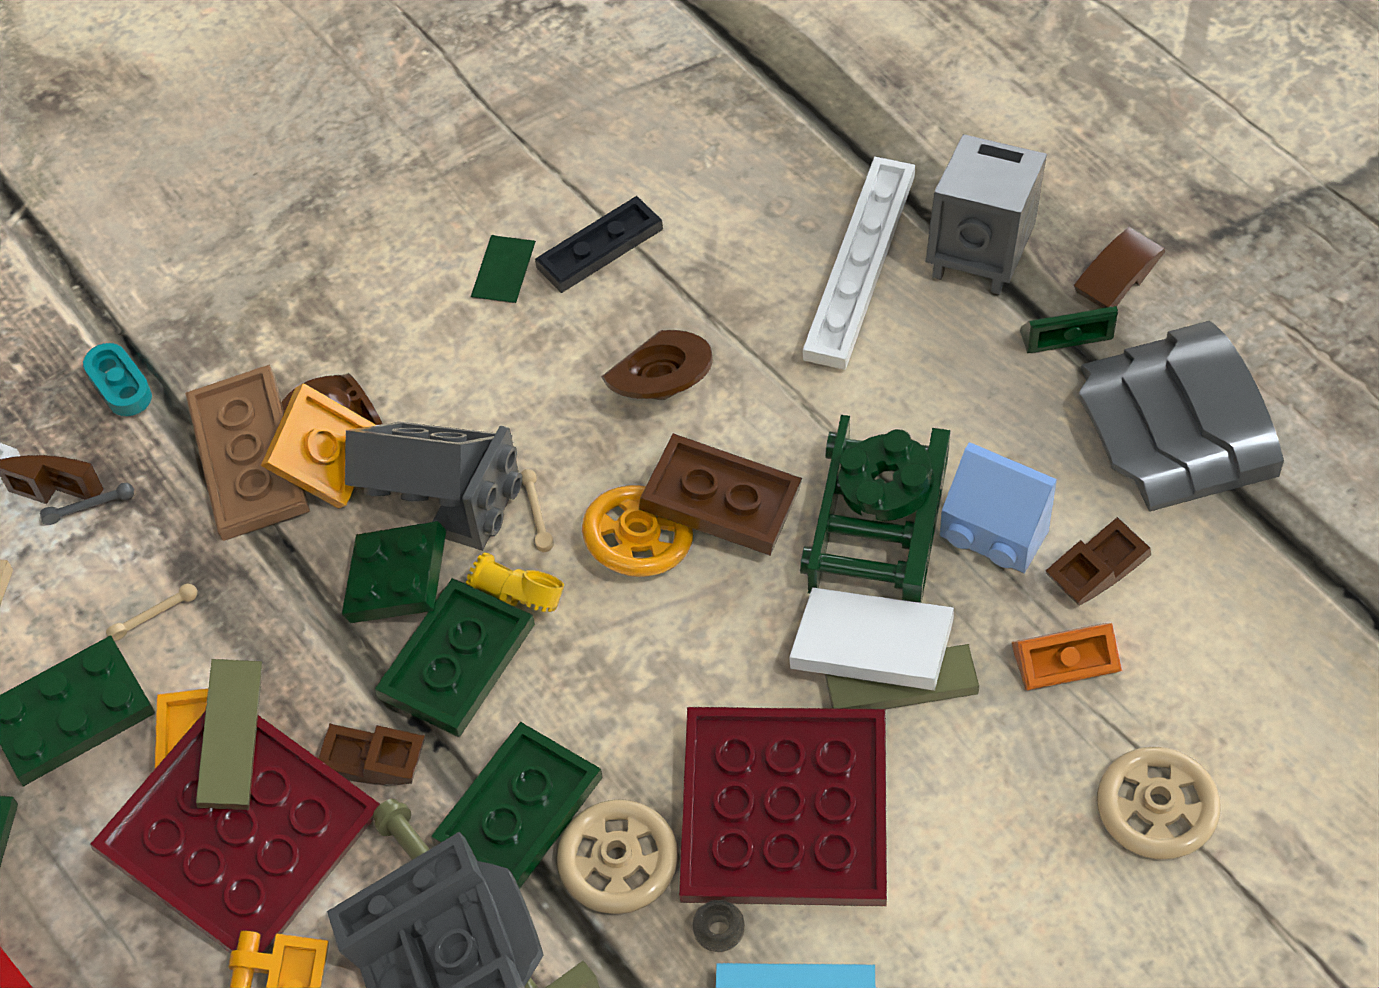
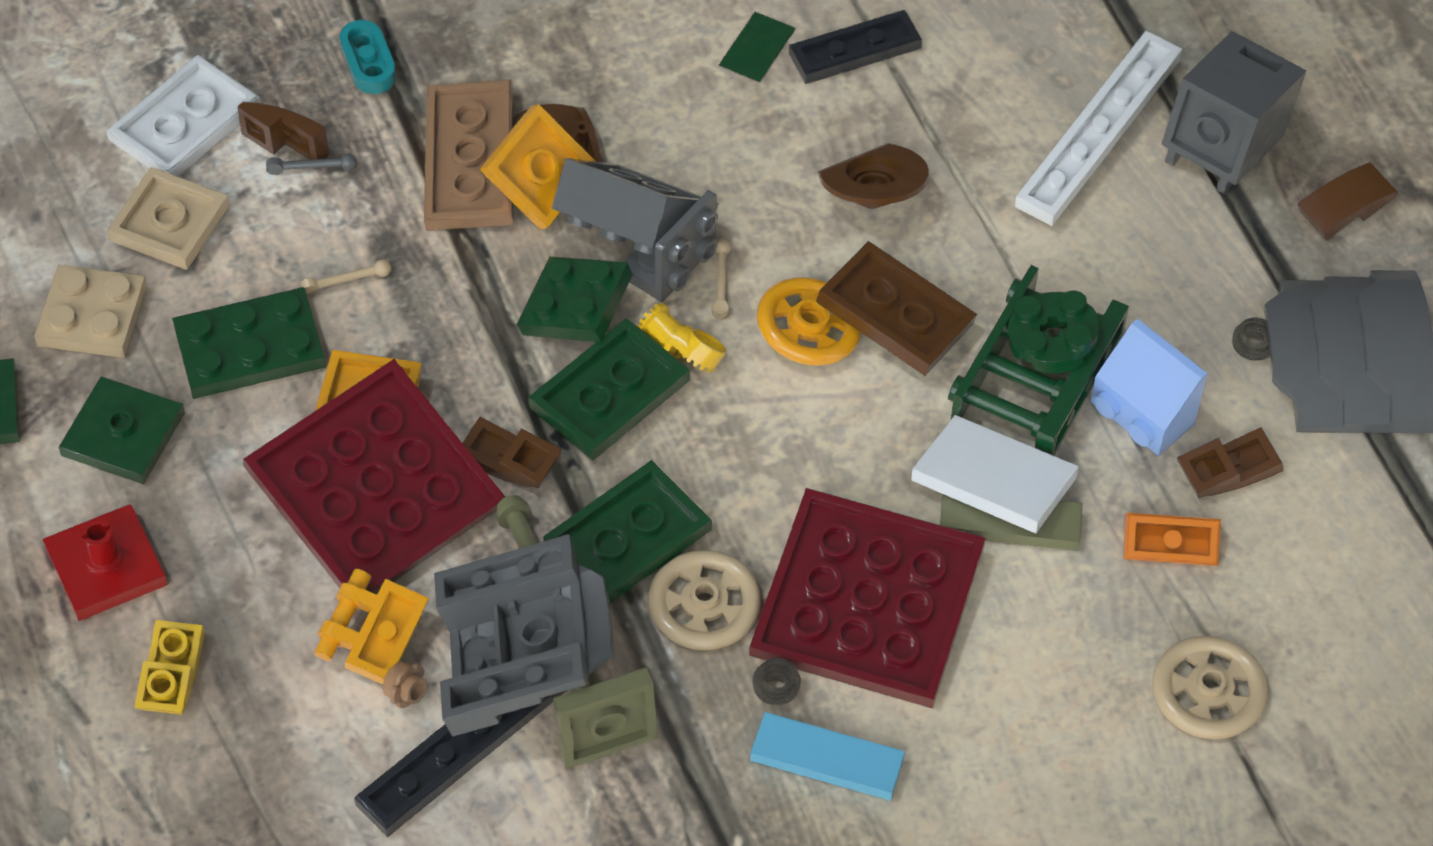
camera: 10 degrees right, 0 degrees up
(229, 734) = (389, 398): olive tile -> none
(1069, 330) = (1278, 244): dark green slope -> none
(1076, 419) = (1255, 329): none -> clear smoke plate

